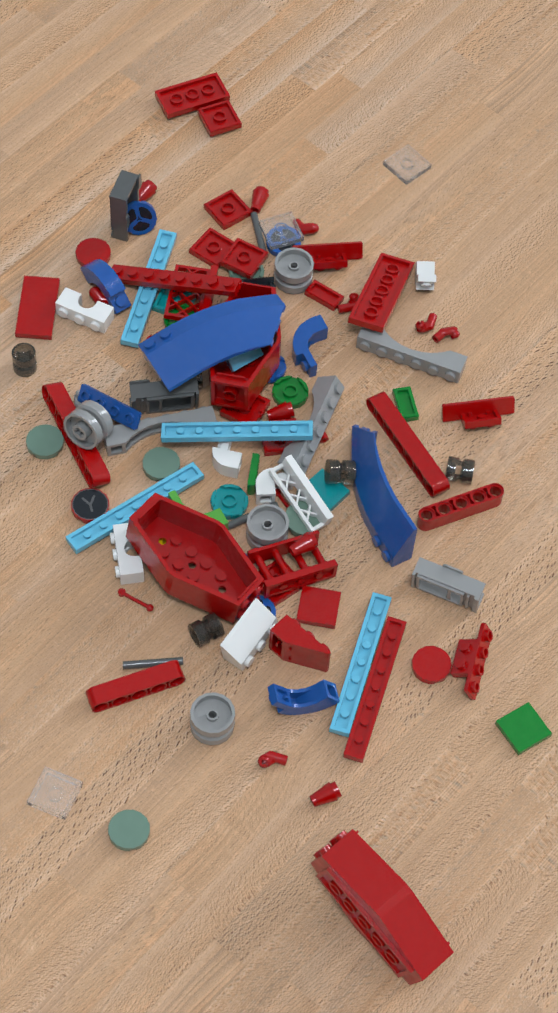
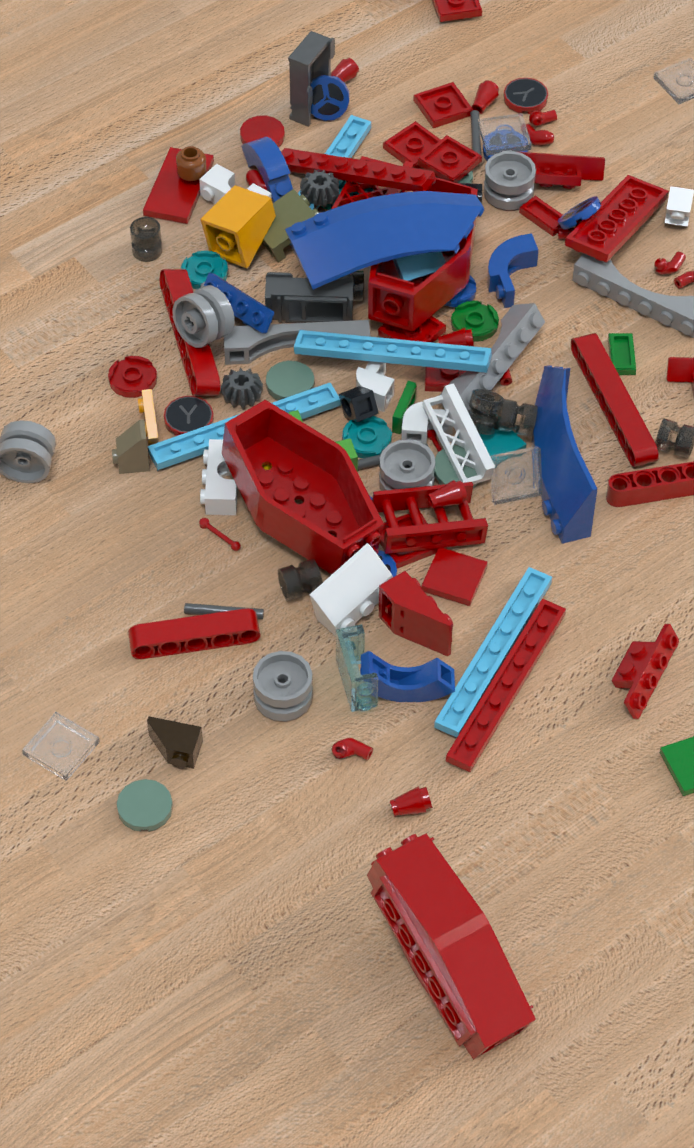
camera: 15 degrees right, 5 degrees down
(39, 477) = (132, 376): none -> red tile
(44, 441) = (149, 336): sand green tile -> none
(46, 290) = (191, 163): none -> dark orange head
(55, 542) = (132, 450): none -> dark tan slope
(59, 506) = (146, 406): none -> wing
(73, 376) = (203, 263): none -> teal tile
(95, 339) = (238, 225): none -> light orange slope
(126, 476) = (241, 388): none -> dark grey gear
(129, 331) = (288, 210): none -> olive panel
(141, 775) = (176, 741): none -> dark brown slope
(150, 298) = (320, 188): none -> dark grey gear
(219, 477) = (358, 403): none -> black brick
(255, 683) = (359, 689): none -> clear light blue panel
(289, 193) = (525, 95): none -> black tile
(304, 212) = (539, 118): none -> red arm
(316, 470) = (483, 410): none -> clear smoke wheel
(349, 519) = (516, 475): none -> clear tile
(353, 291) = (581, 211): none -> blue tile
(431, 664) = (588, 667): red tile -> none
(448, 584) = (629, 569): light grey piece -> none

